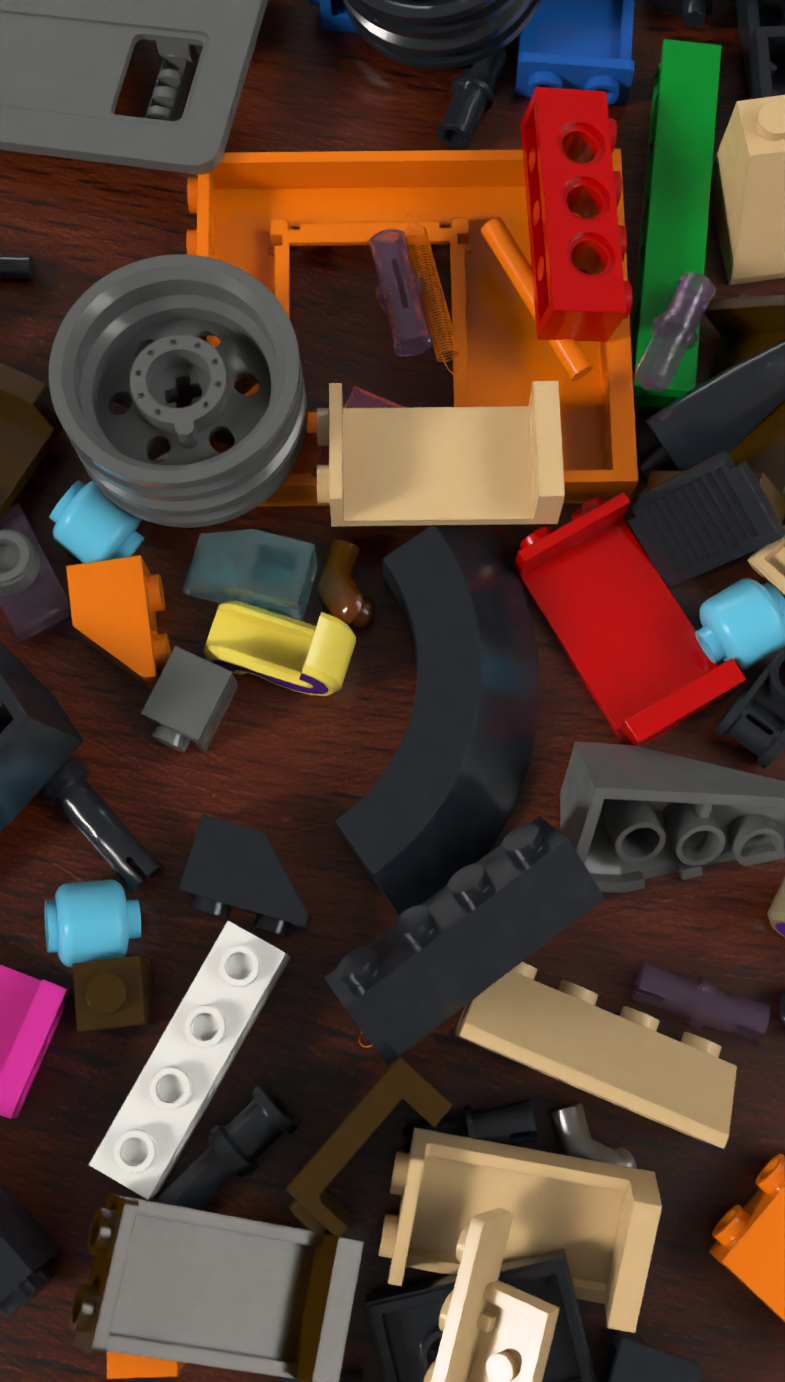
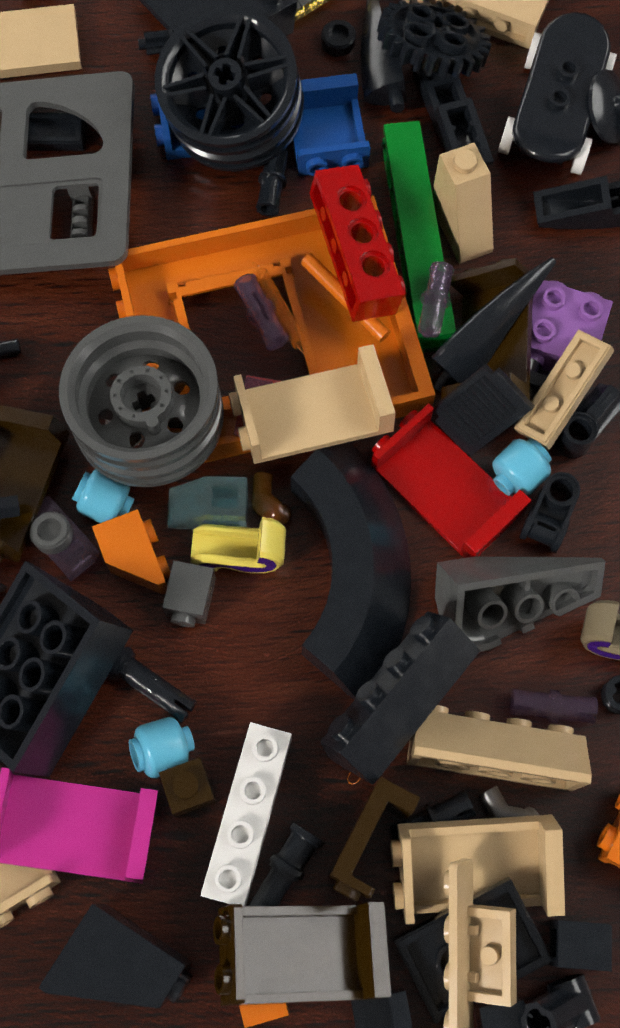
camera: 15 degrees left, 5 degrees down
(242, 871) = (249, 692): black slope -> none

